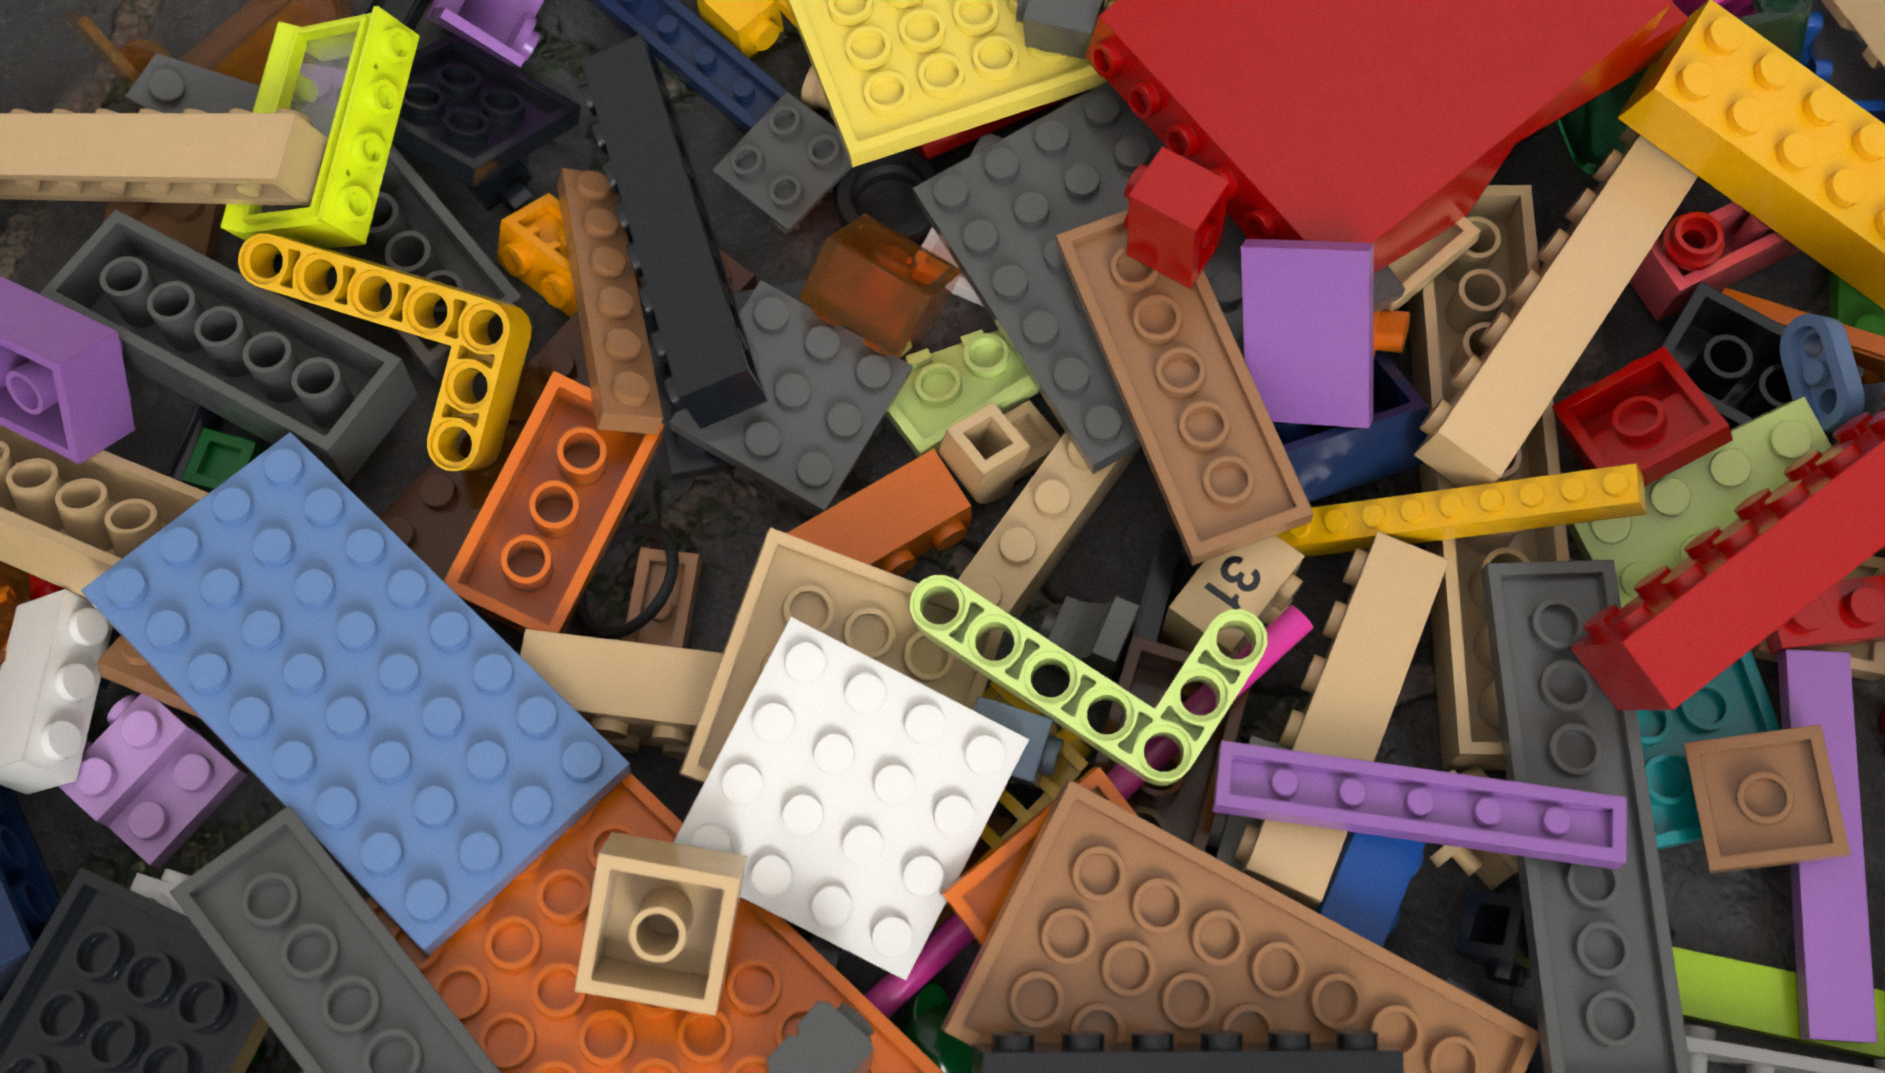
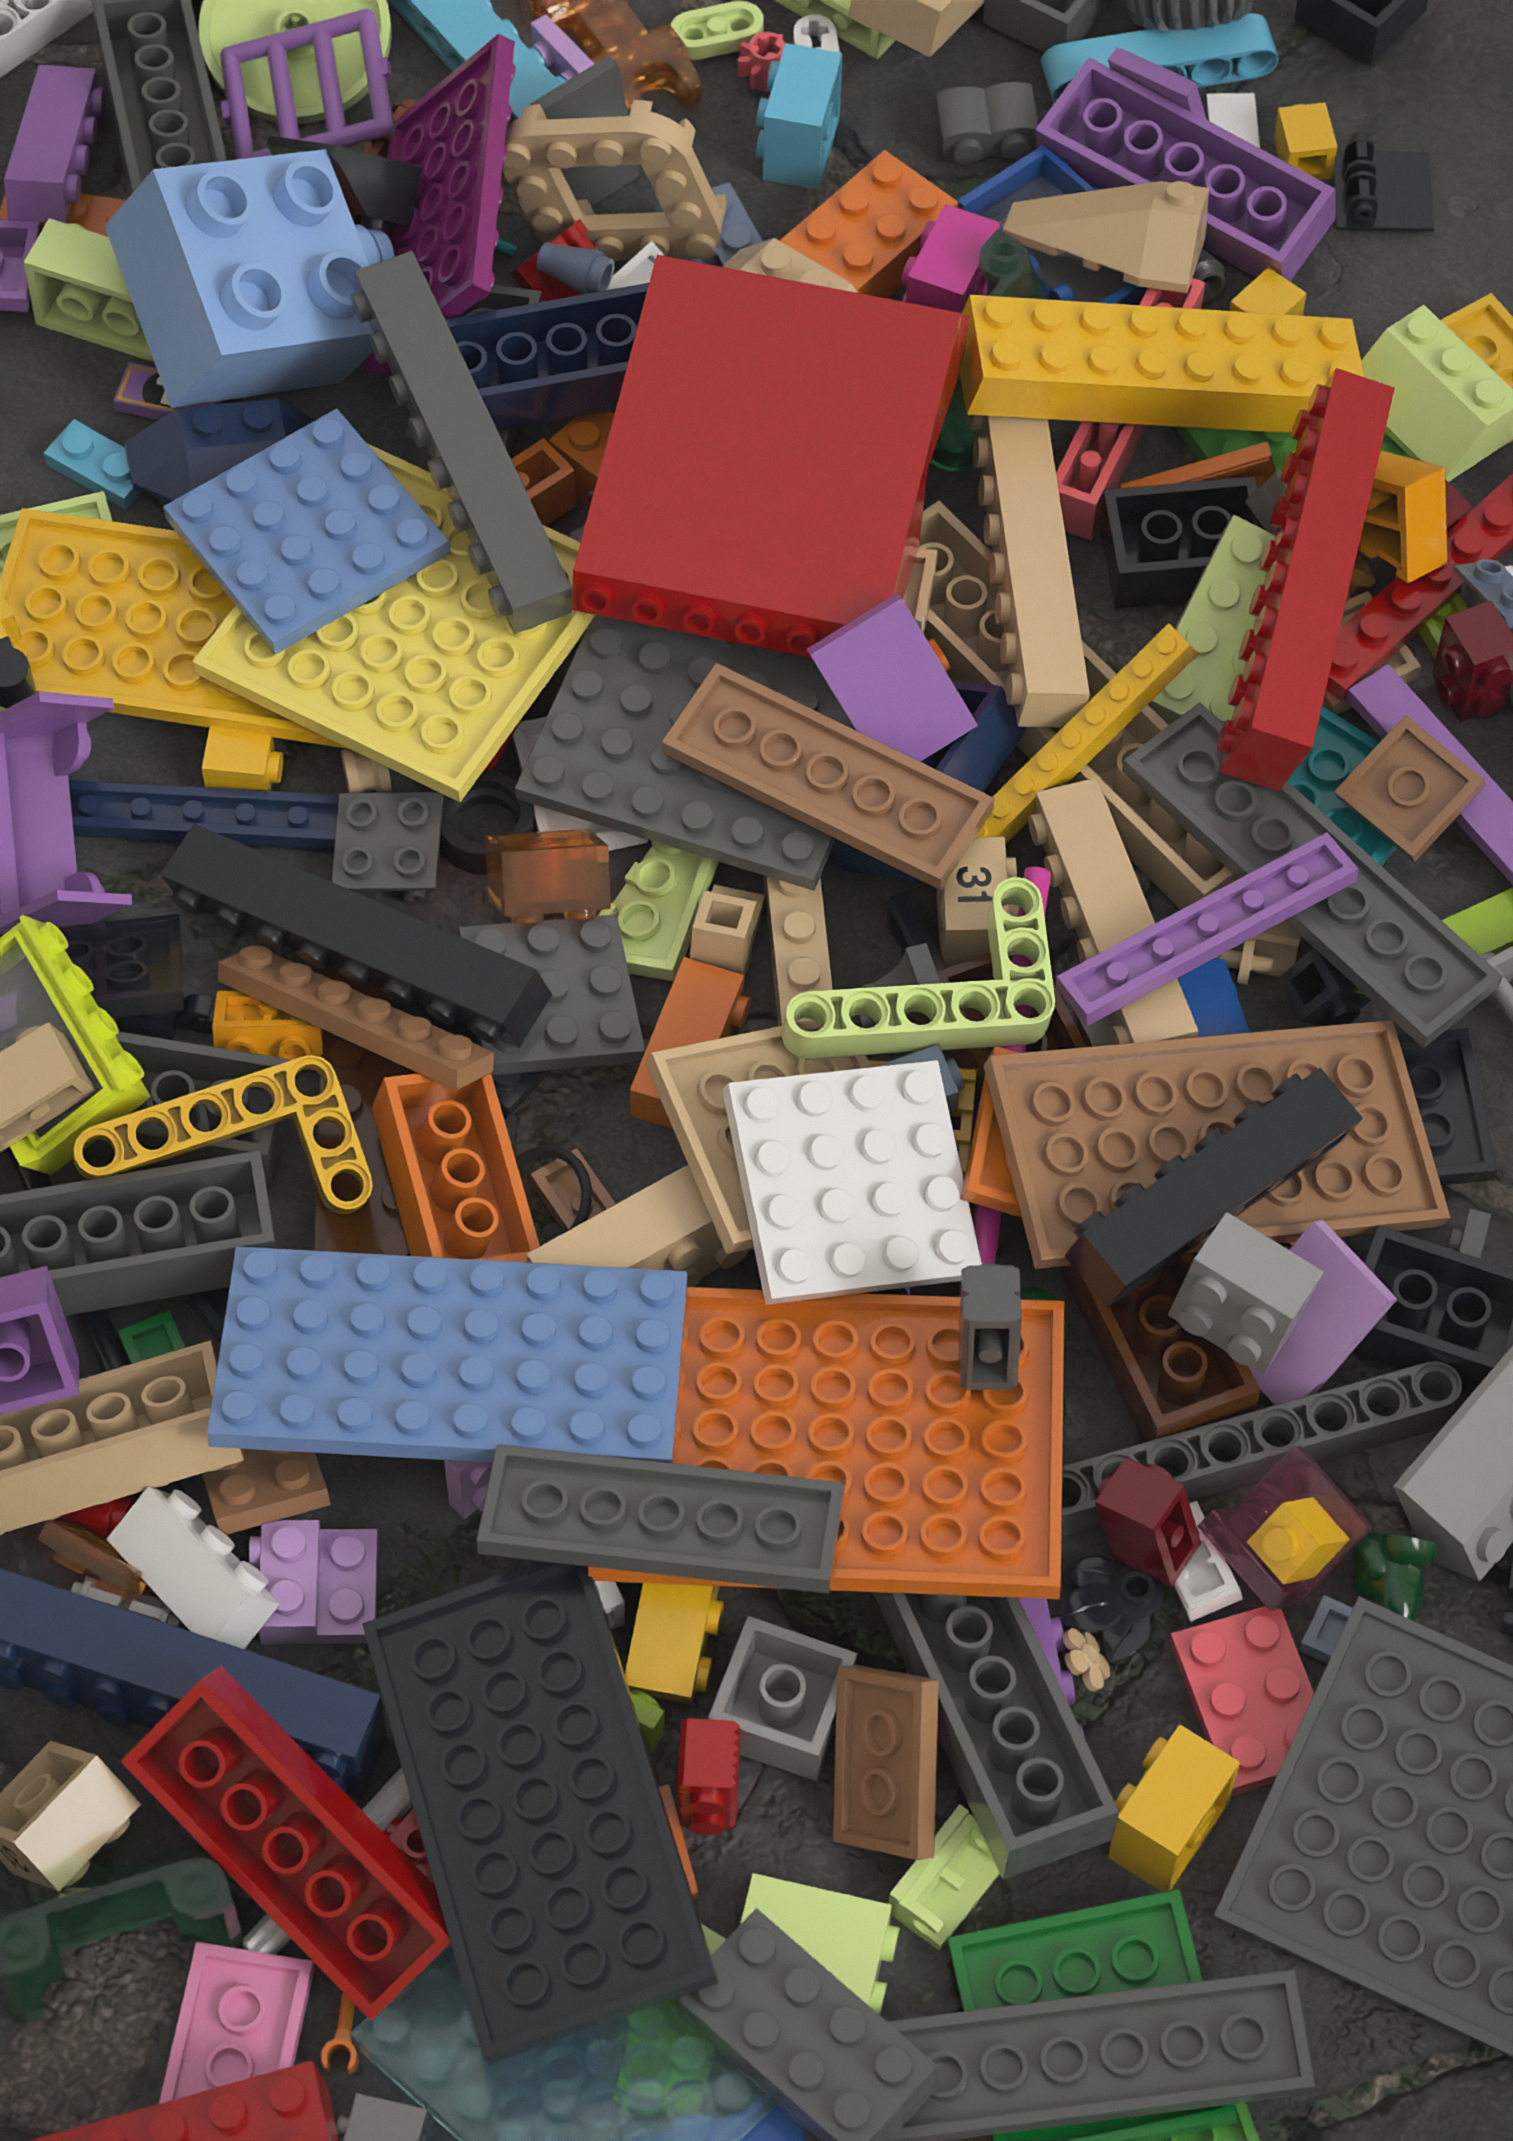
camera: 45 degrees left, 10 degrees down
(660, 923) = (813, 1321): tan brick -> none
(1175, 216) = (747, 667): red brick -> none
(1644, 417) = (1140, 598): red plate -> none
(1702, 230) = (1079, 454): red plate -> none
(1825, 377) = (1234, 494): medium blue plate -> none

